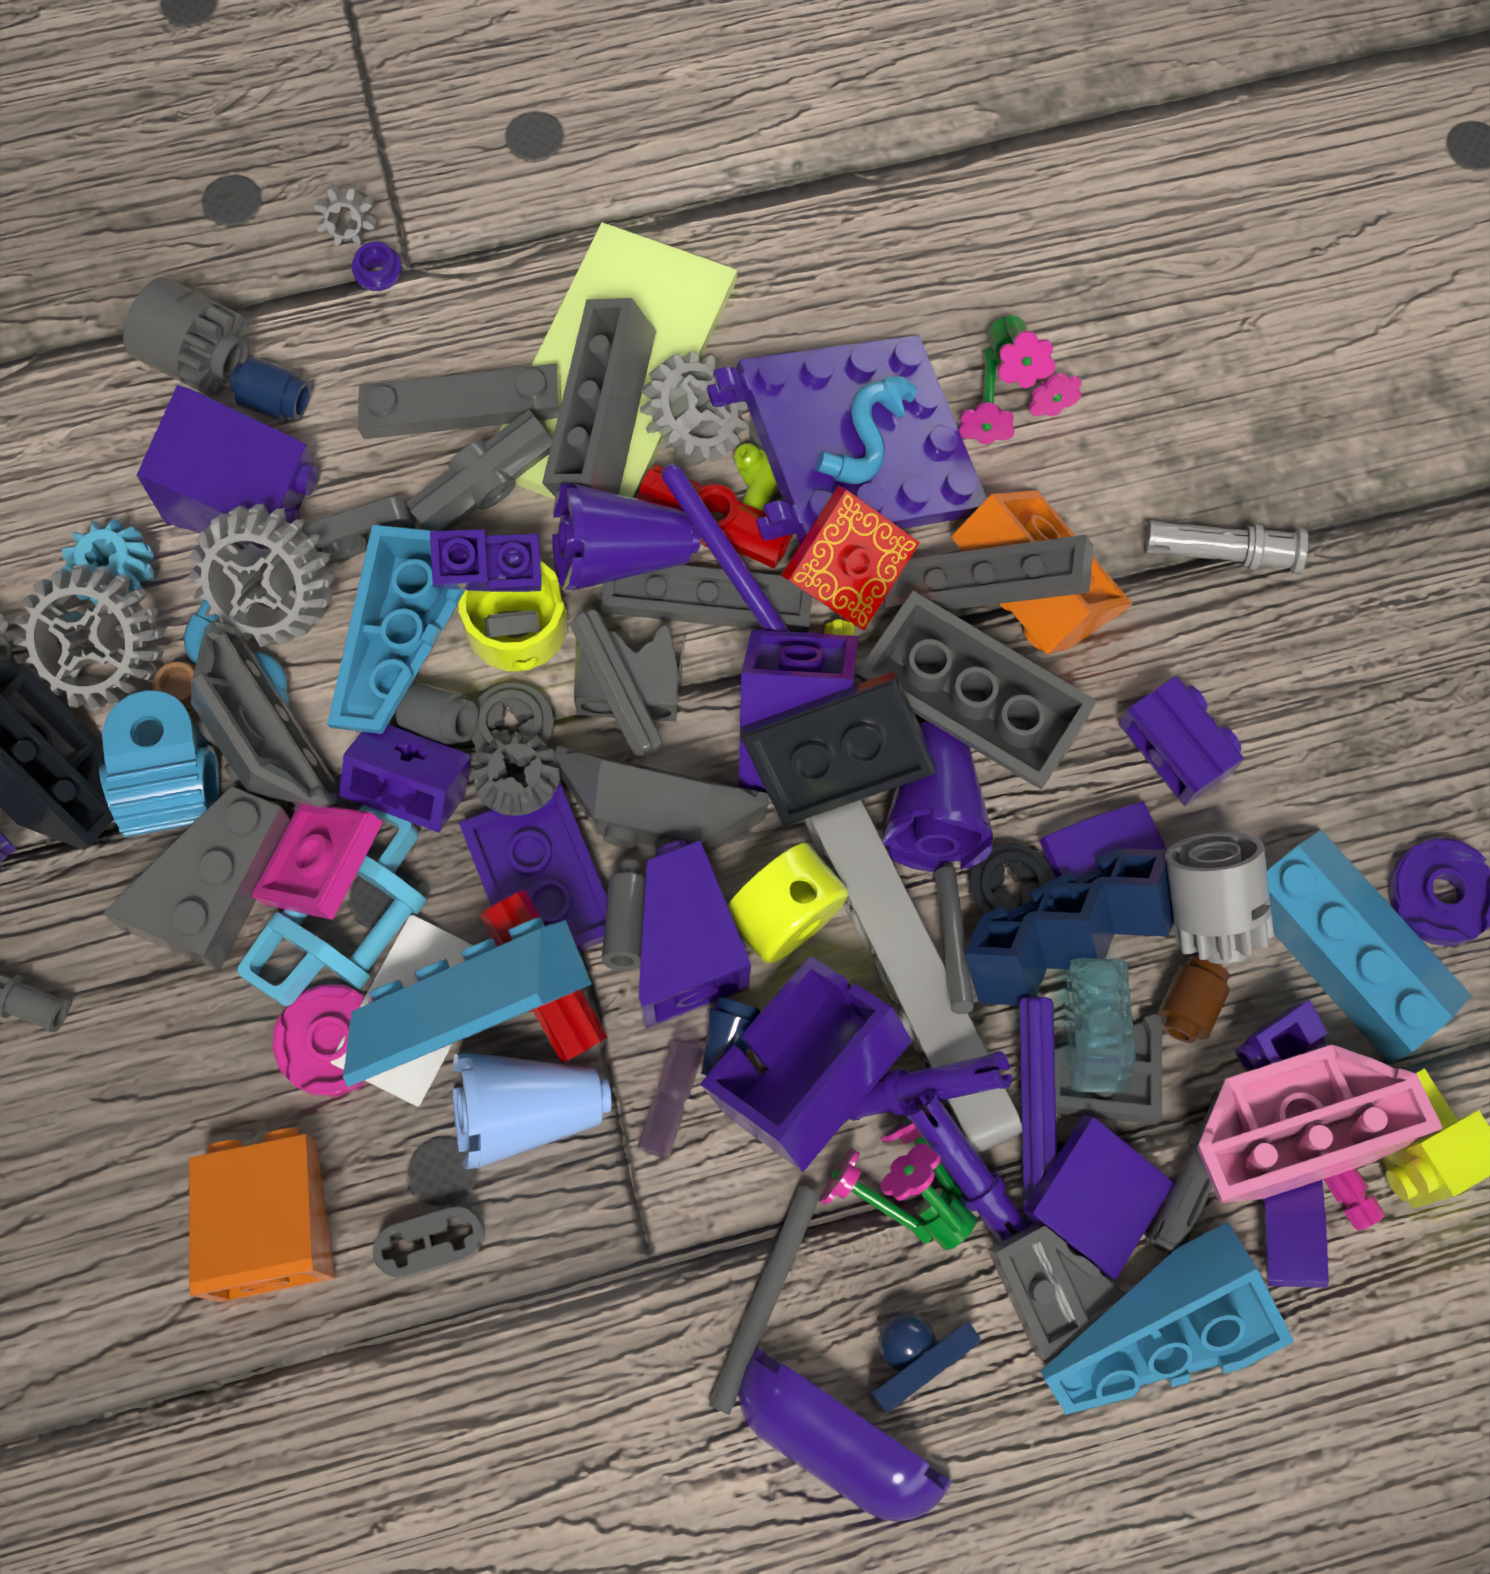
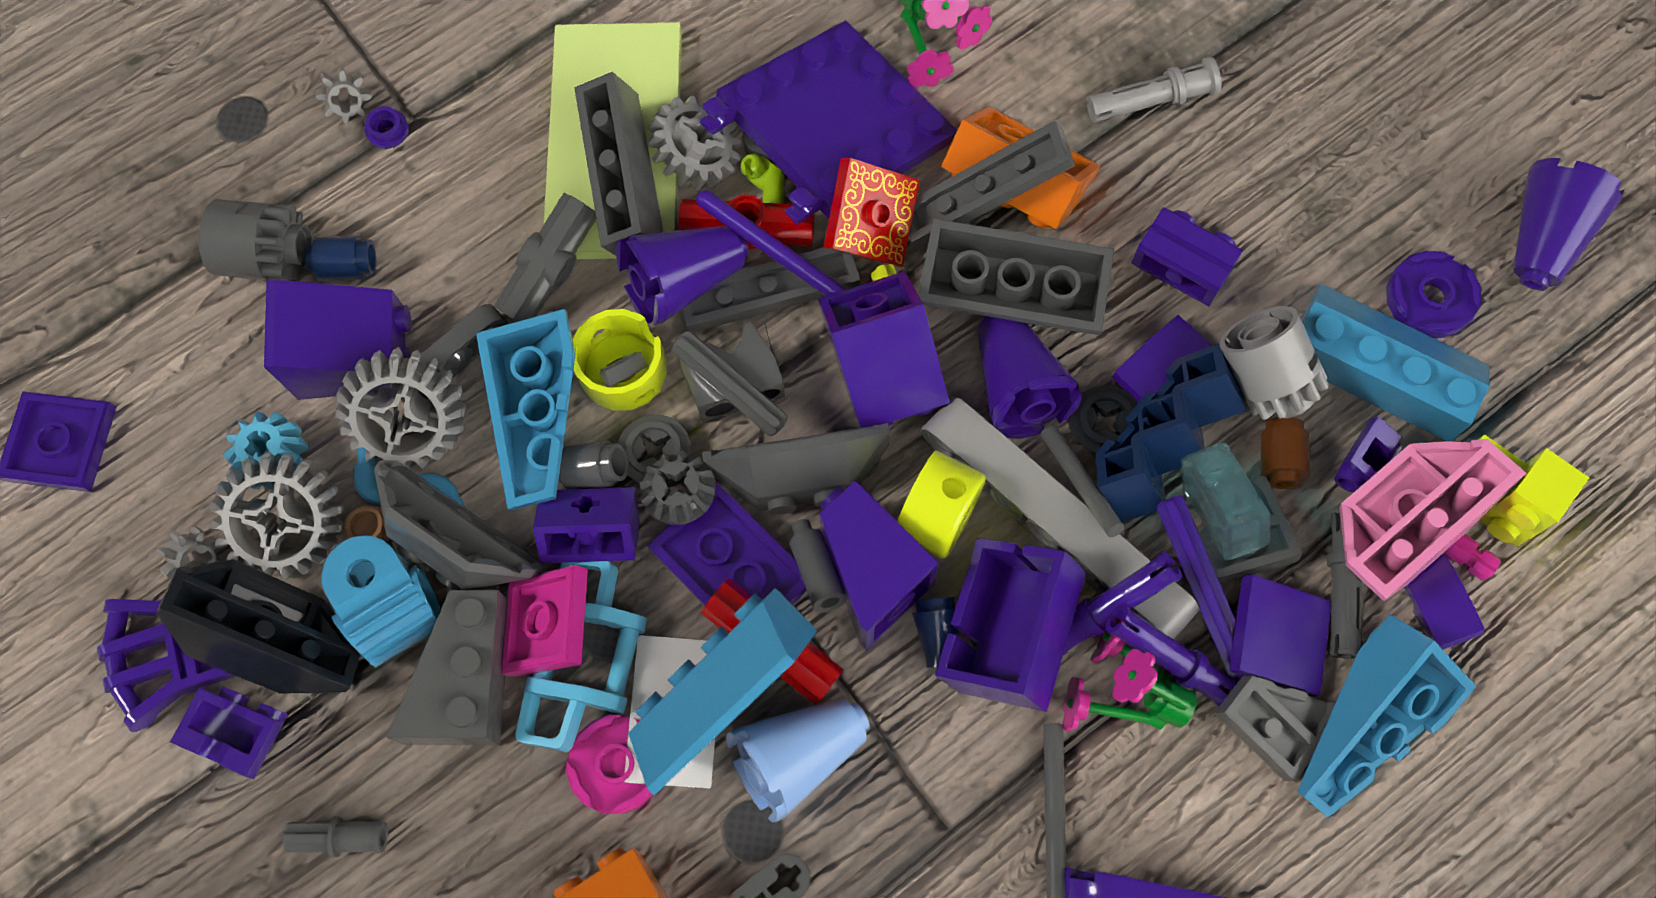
camera: 15 degrees left, 0 degrees up
(458, 401) = (500, 209): dark grey plate -> none
(484, 562) = (583, 327): dark purple slope -> none
(668, 1105) = (912, 703): clear purple piece -> none
(838, 749) = (931, 365): black tile -> none
(890, 395) = (846, 73): dark azure animal -> none
(912, 1350) = (1196, 821): dark blue tile -> none

